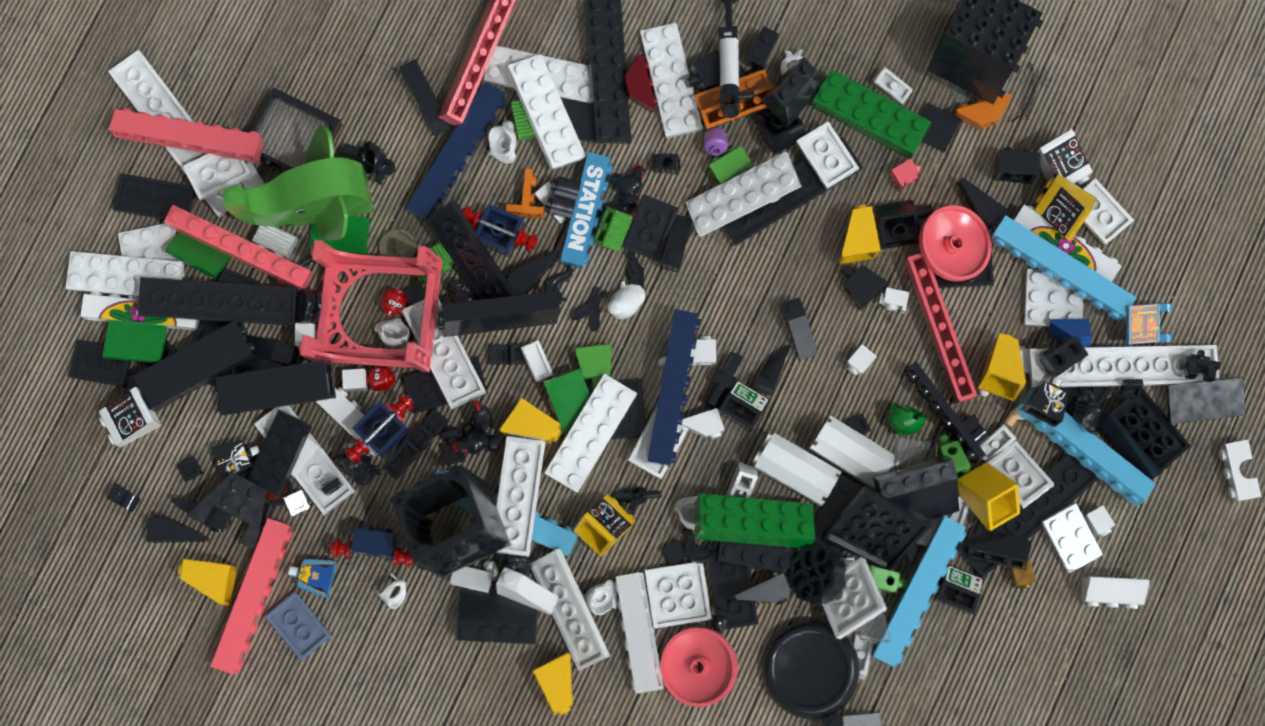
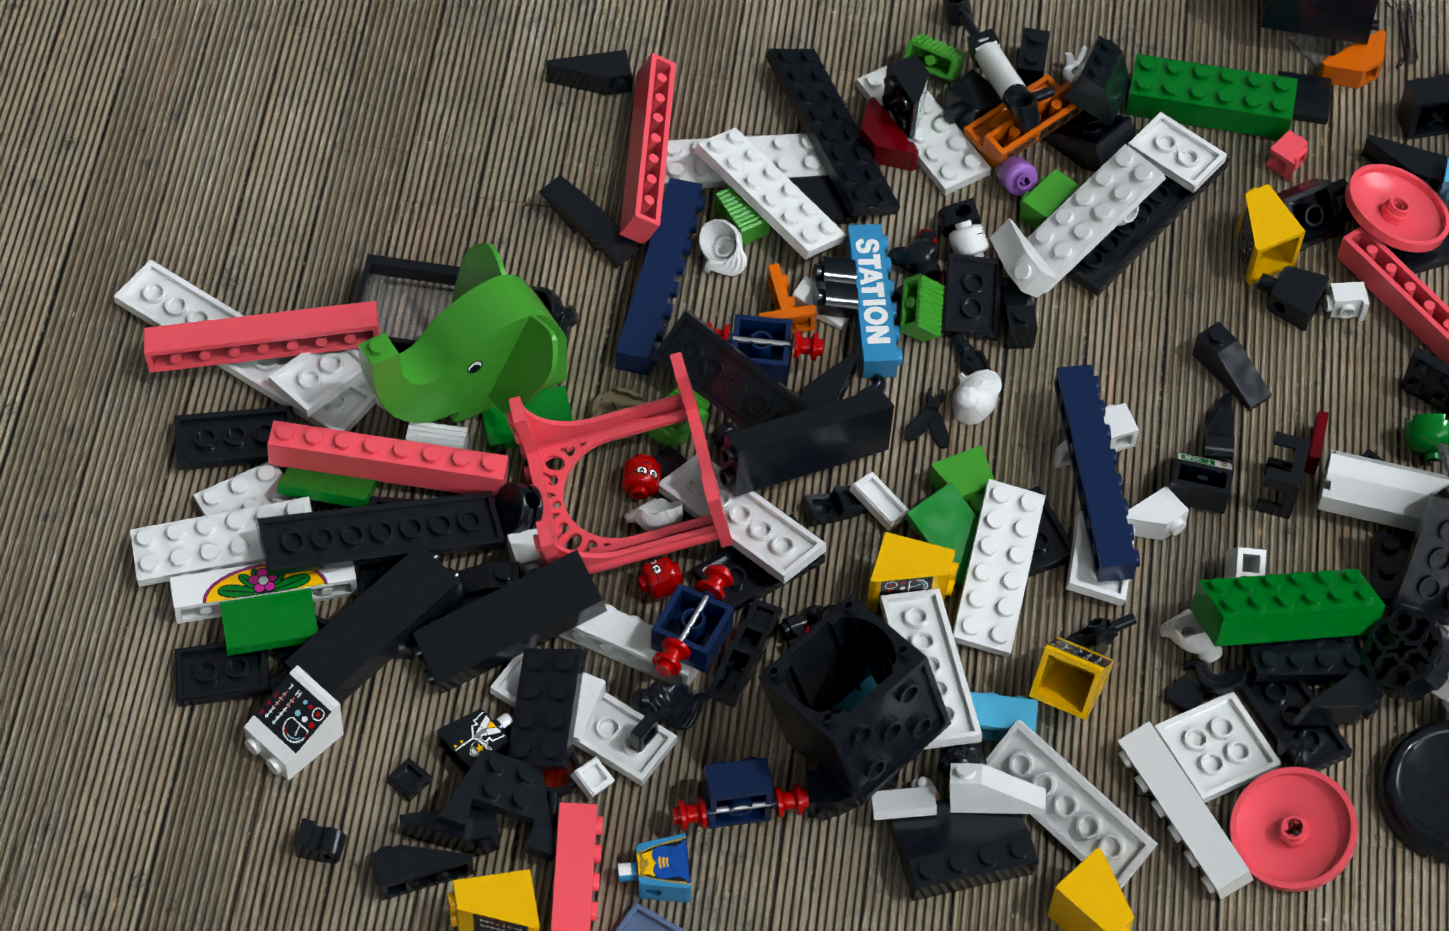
camera: 20 degrees left, 25 degrees down
(354, 380) = (623, 590): white panel -> none
(395, 601) = (781, 865): white piece -> none
(482, 418) = (832, 581): black animal -> none
(601, 598) = (1109, 776): white hair -> none
(662, 60) = (906, 92): none -> black slope
(663, 184) = (969, 239): none -> white head
(689, 213) = (1022, 260): none -> white slope
(697, 29) = (937, 57): none -> bright green brick
(724, 380) = (1158, 454): black piece -> none
(796, 469) = (1313, 532): white brick -> none
(801, 410) = (1284, 475): none -> black panel
(829, 400) = (1316, 443): none -> dark red tile
(860, 361) = (1336, 383): white brick -> none
(891, 85) = (1212, 55): white slope -> none

